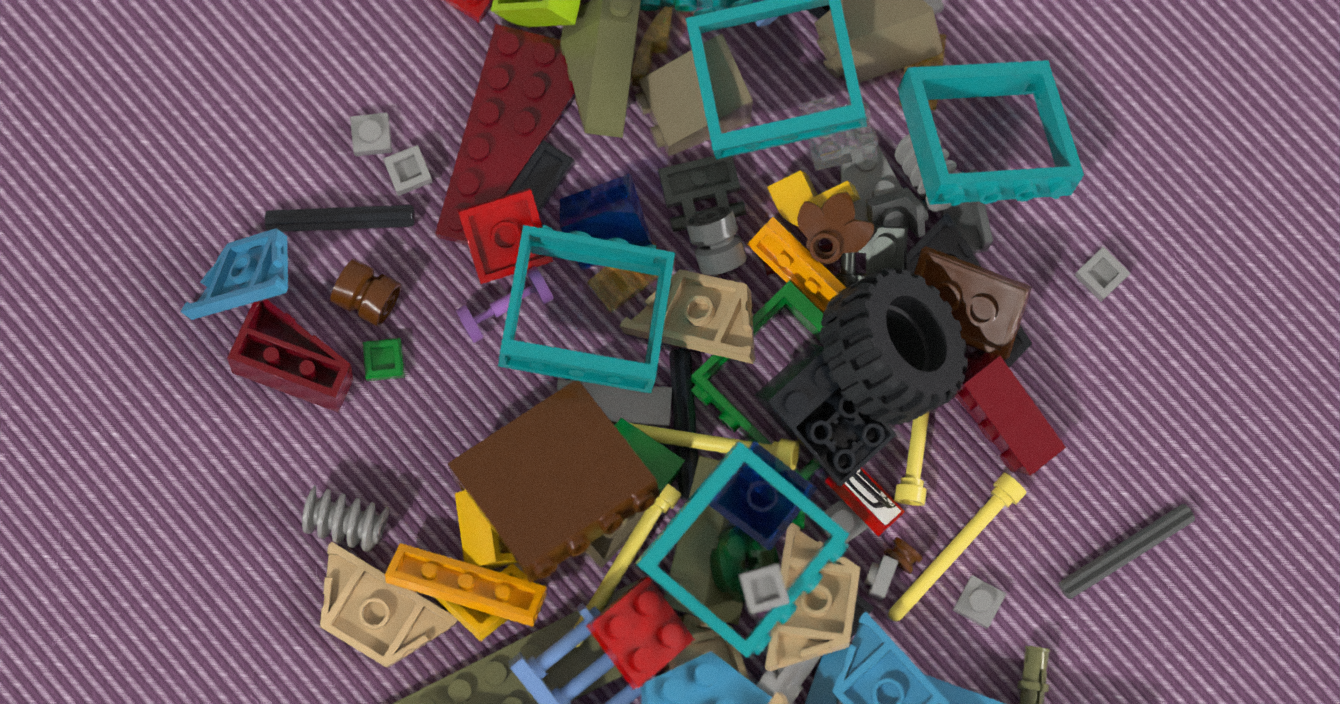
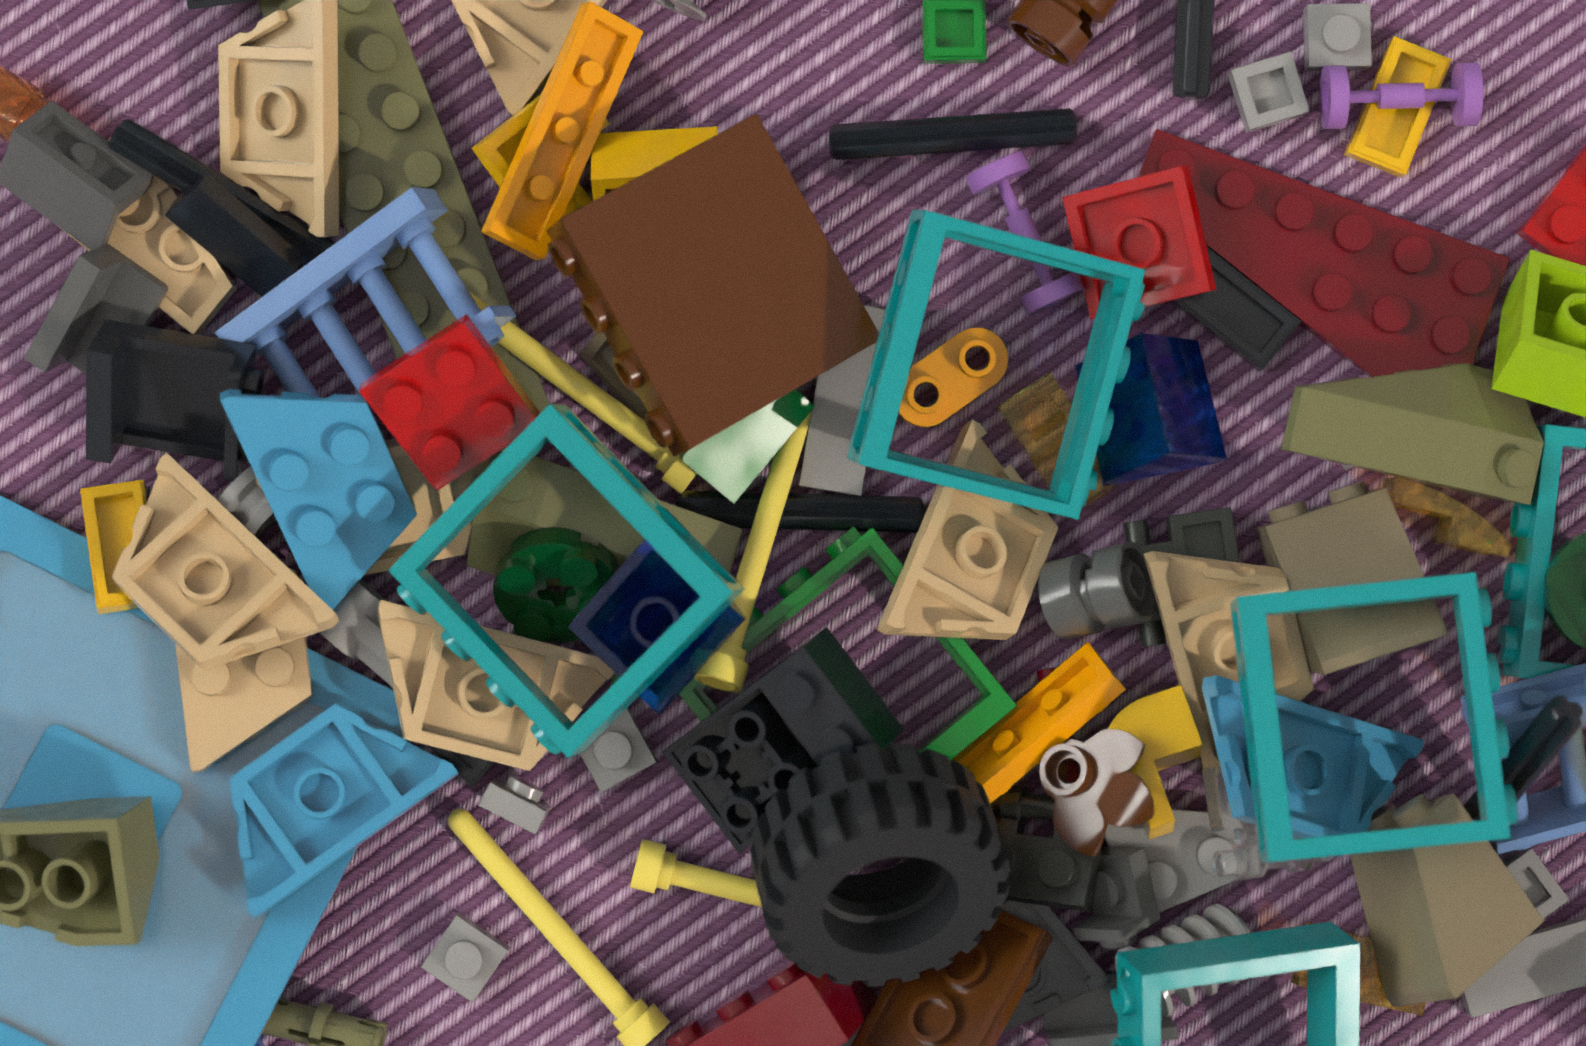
camera: 95 degrees right, 10 degrees up
(401, 57) = (1464, 94): none -> medium lavender wheel
(410, 96) = (1391, 136): none -> yellow tile
(447, 354) = (952, 134): none -> black axle
(596, 338) = (952, 378): none -> light orange plate
(738, 175) = (1197, 623): none -> tan wing
(764, 588) = (489, 607): light grey plate -> none
(801, 91) = (1332, 762): none -> dark azure wing
(868, 501) = (639, 799): tile -> none
(904, 554) = (549, 842): reddish brown bush -> none

